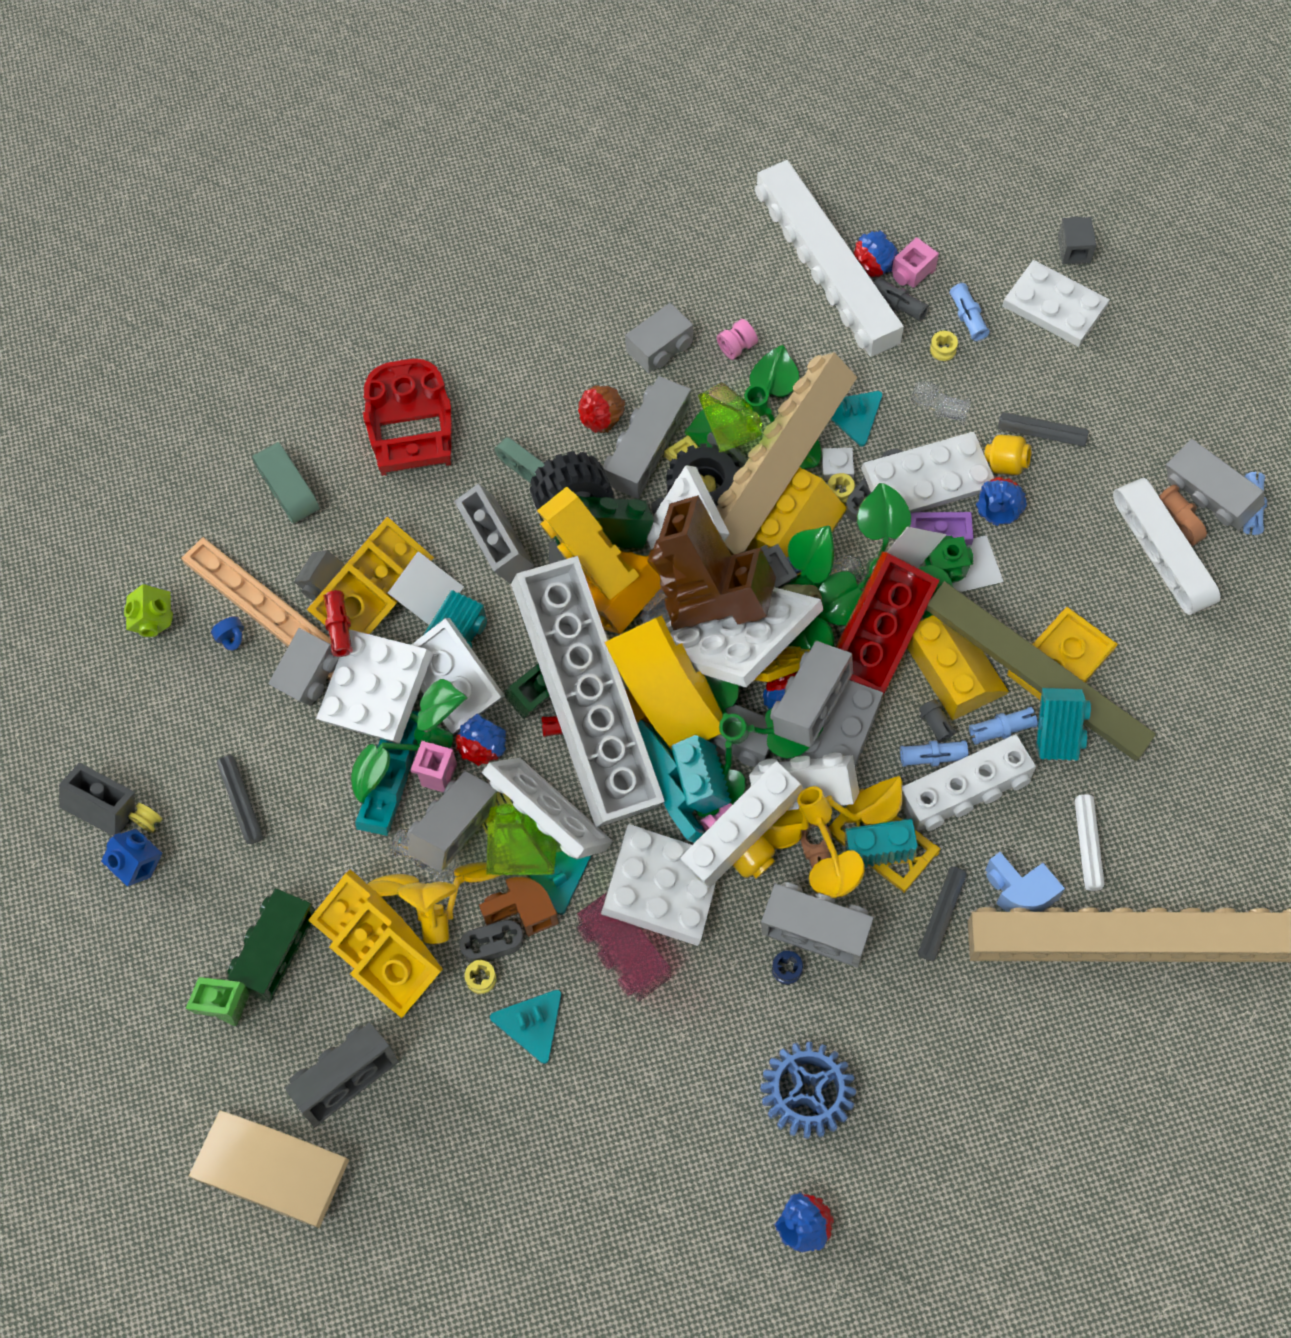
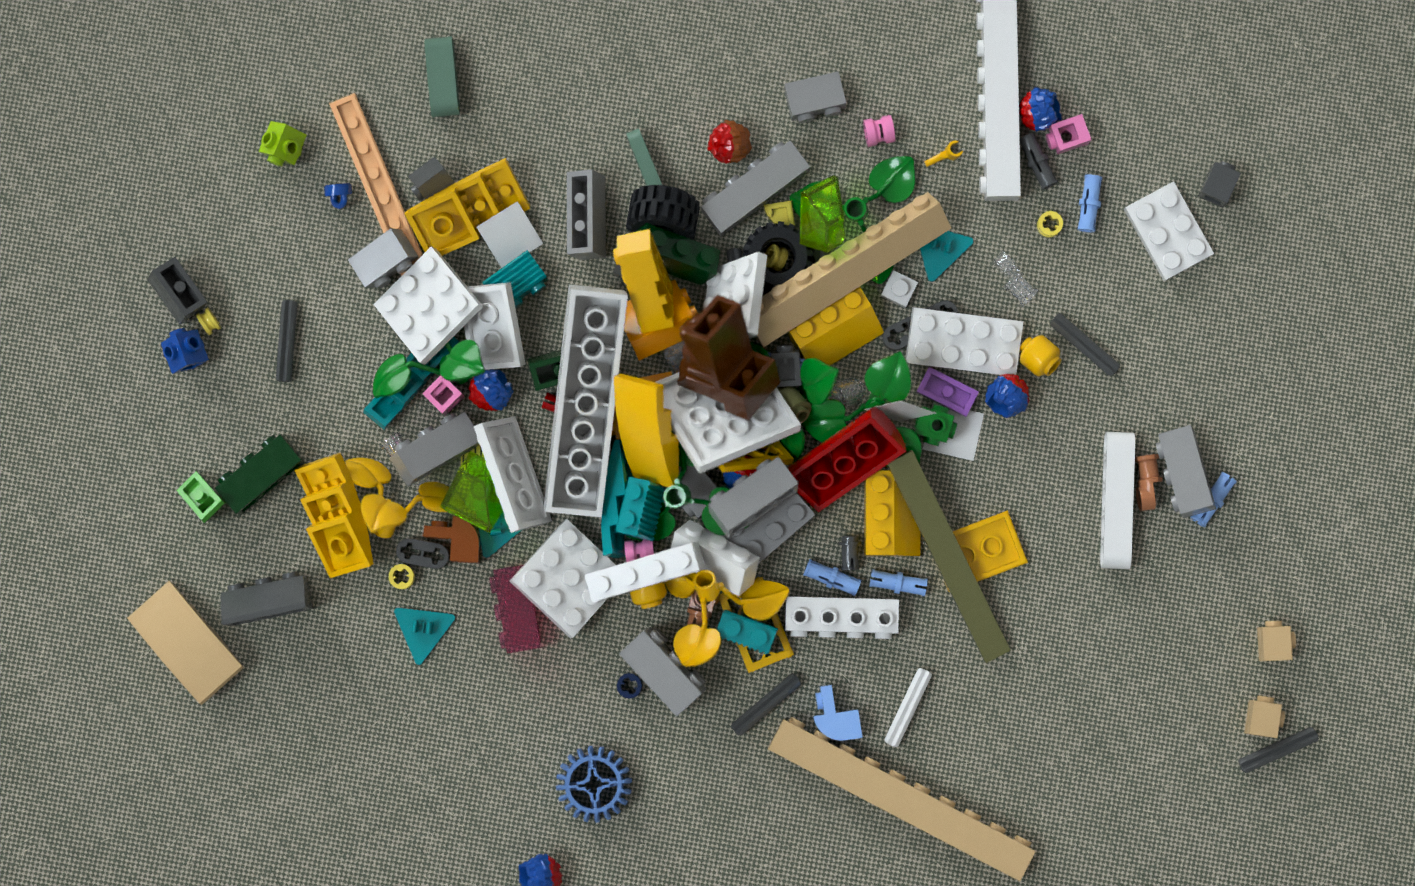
camera: 25 degrees right, 20 degrees up
(337, 623) = (422, 241): red pin -> none
(406, 393) = (578, 40): red slope -> none
(813, 331) = (944, 155): none -> yellow hand
(844, 480) = (883, 306): light yellow bush -> none
(1061, 724) = (938, 609): teal brick -> none

